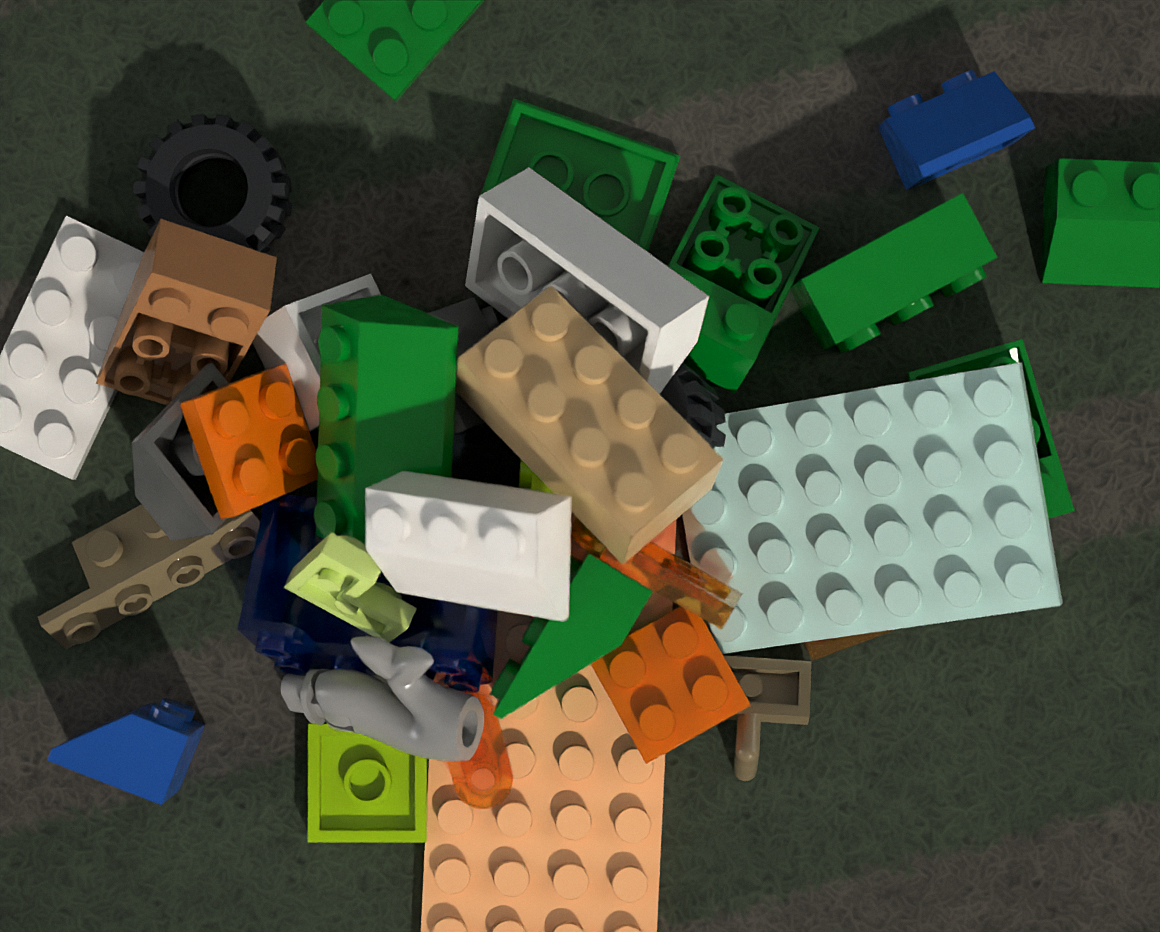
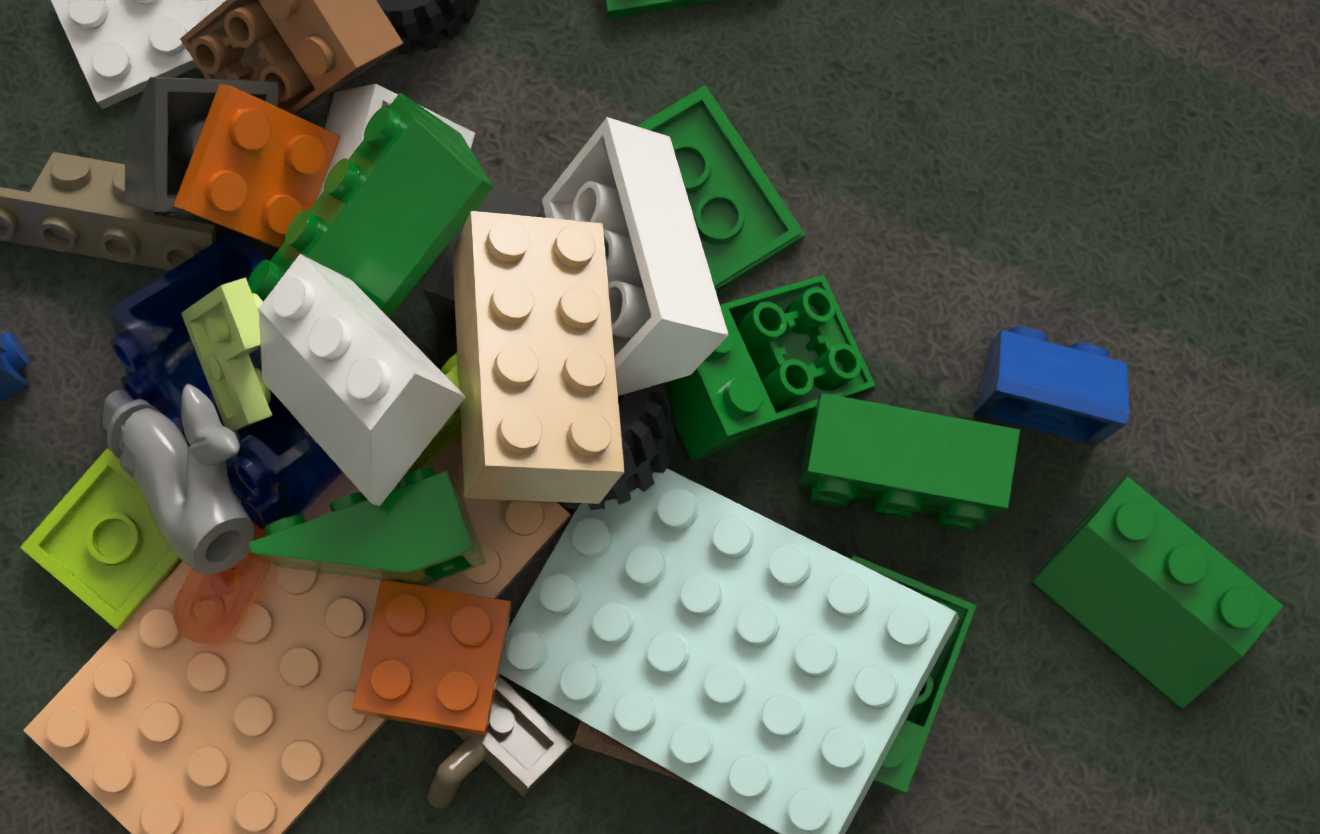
camera: 35 degrees right, 10 degrees down
(668, 576) = (504, 560): clear orange tile -> none

